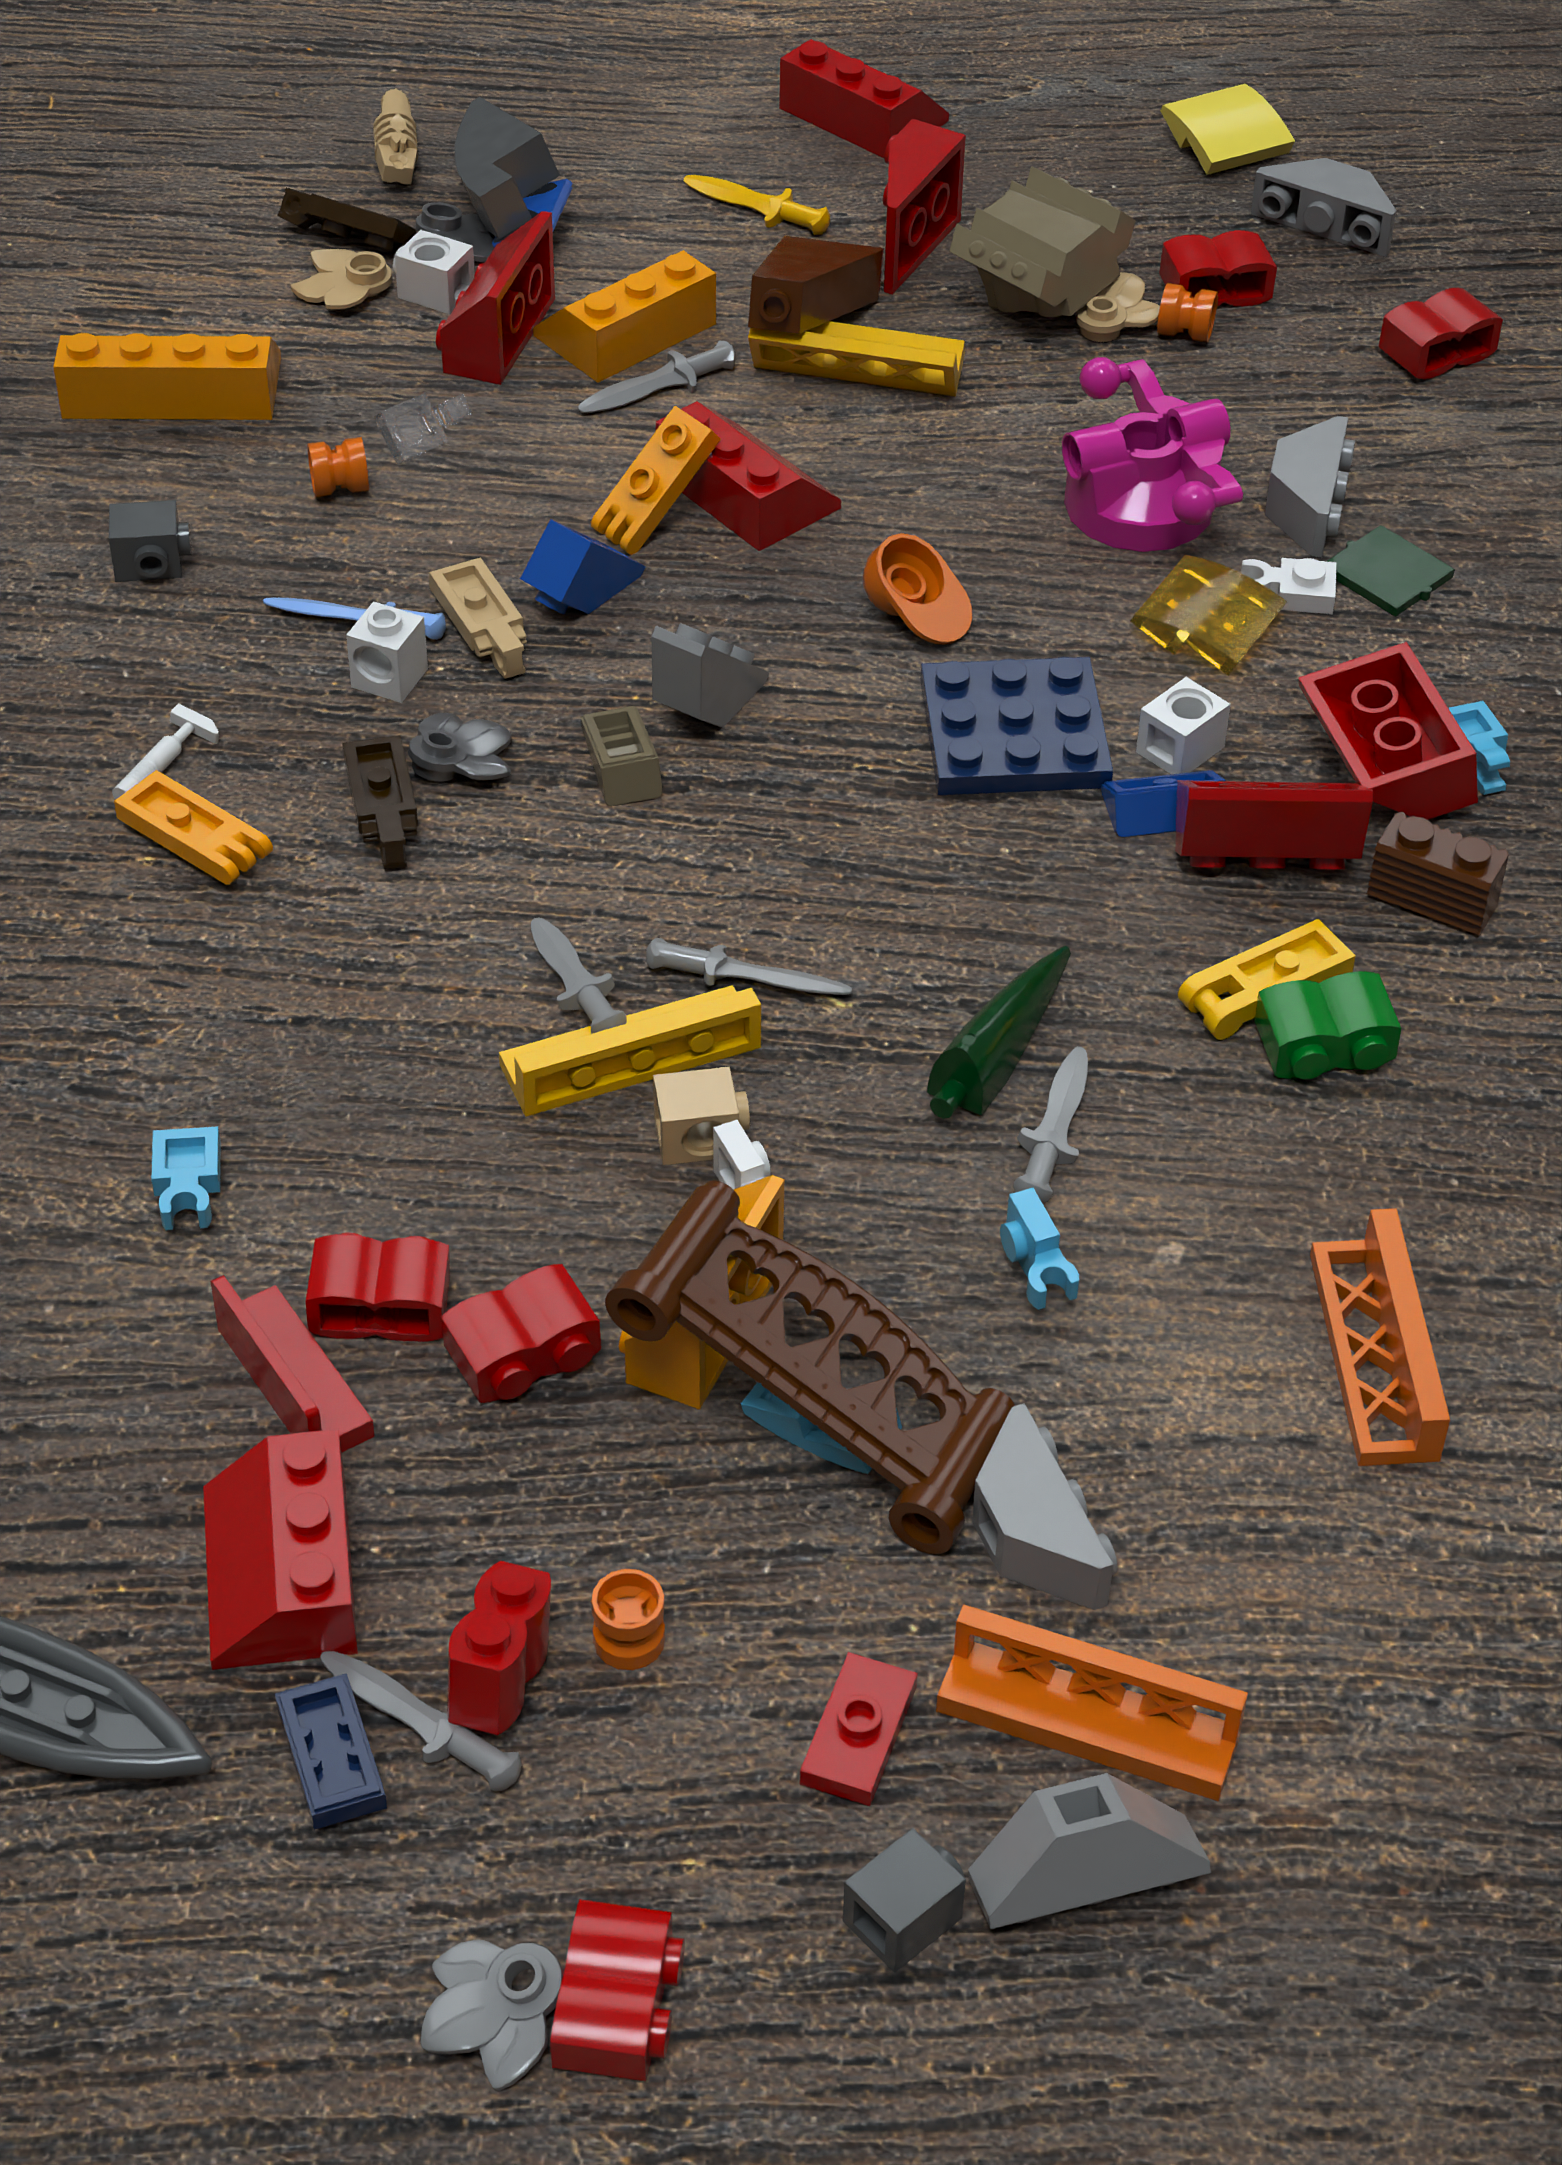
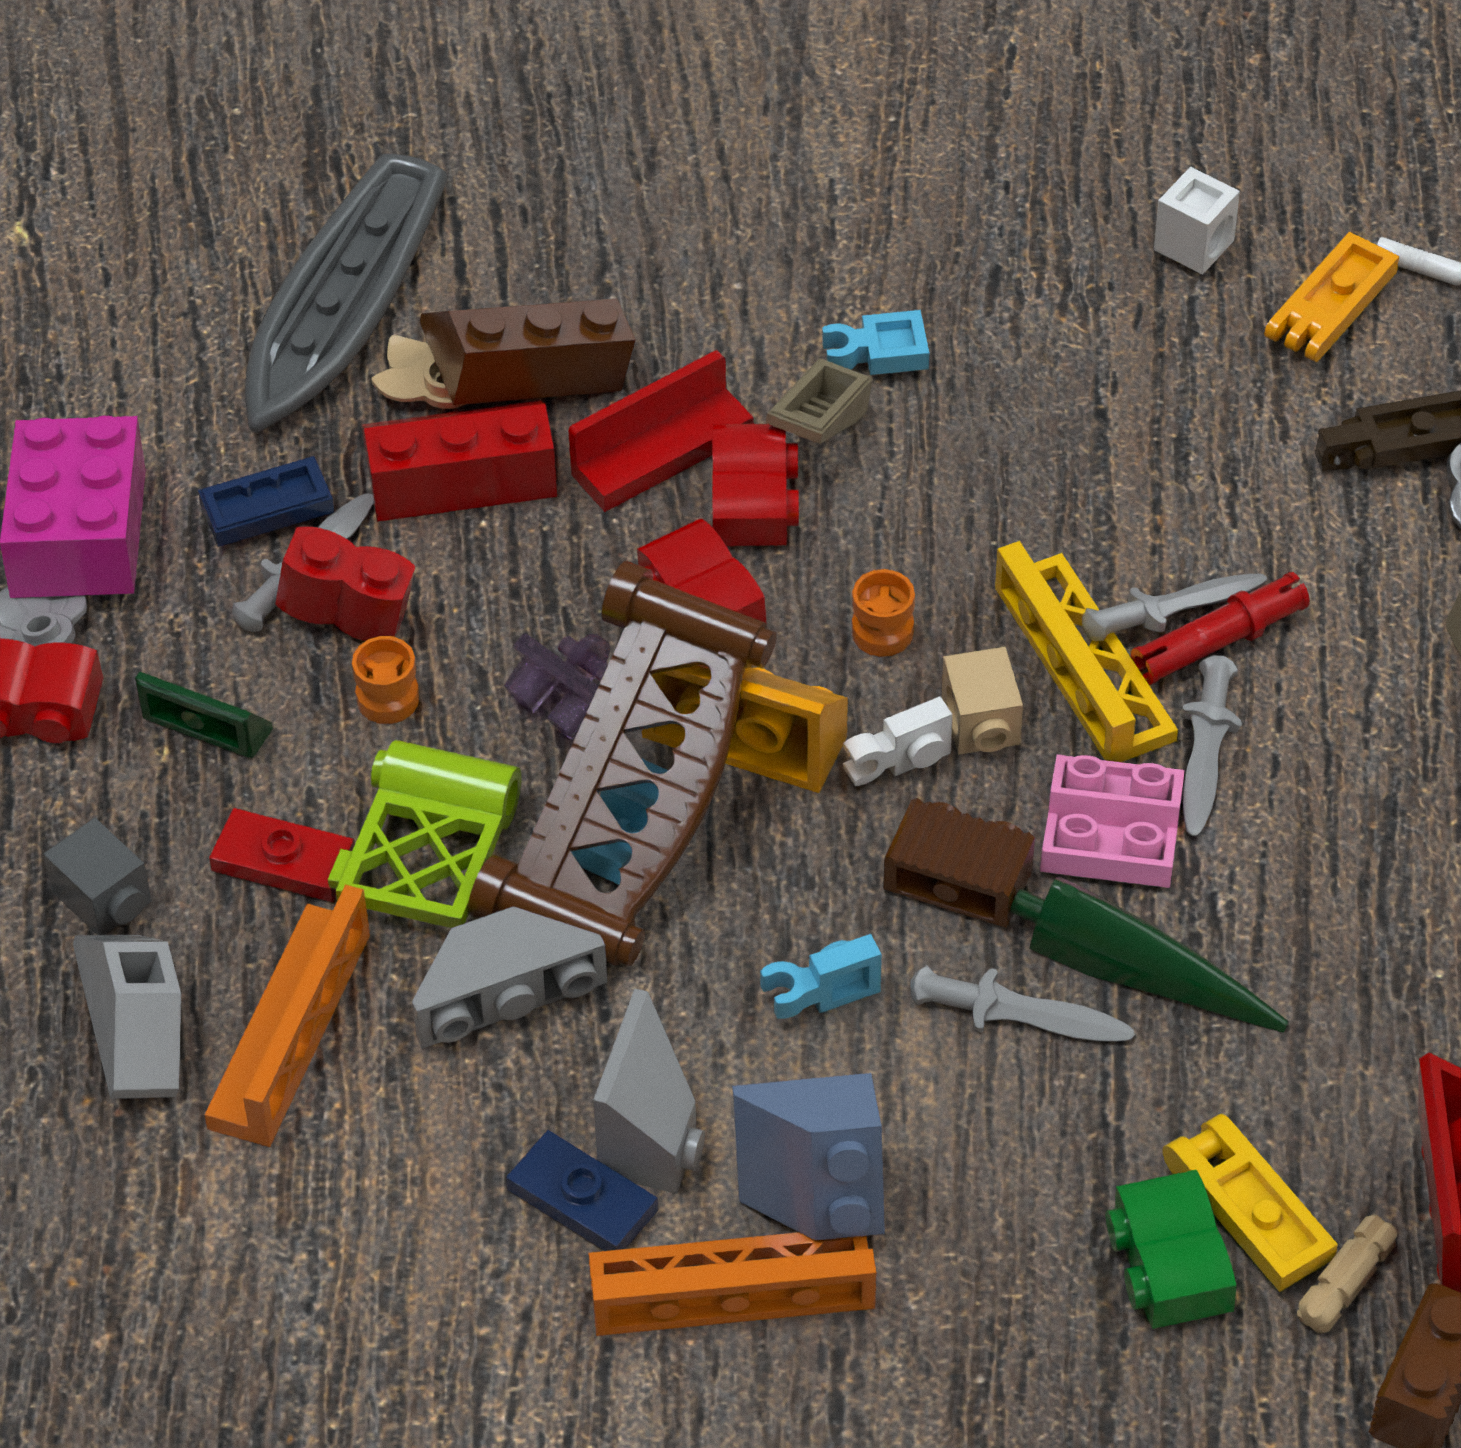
camera: 90 degrees right, 5 degrees up
(81, 900) = (1196, 220): none -> white brick
(130, 1592) = (412, 374): none -> tan plate
(138, 1471) = (530, 350): none -> reddish brown slope
(284, 1212) = (822, 402): none -> dark tan slope
(333, 1940) = (73, 507): none -> dark pink brick
(574, 1185) = (883, 612): none -> orange wheel
(602, 927) = (1240, 618): none -> red pin
(628, 1472) = (544, 671): none -> clear purple hips
(653, 1809) = (201, 716): none -> dark green slope
(792, 1566) = (442, 796): none -> lime piece
(837, 1042) = (1112, 820): none -> bright pink slope
(895, 1144) = (959, 861): none -> reddish brown brick
(1199, 1387) = (646, 1105): none -> light grey slope
(1280, 1235) = (812, 1154): none -> sand blue slope
(1288, 1461) = (582, 1193): none -> dark blue plate
(1368, 945) = (1347, 1274): none -> tan axle

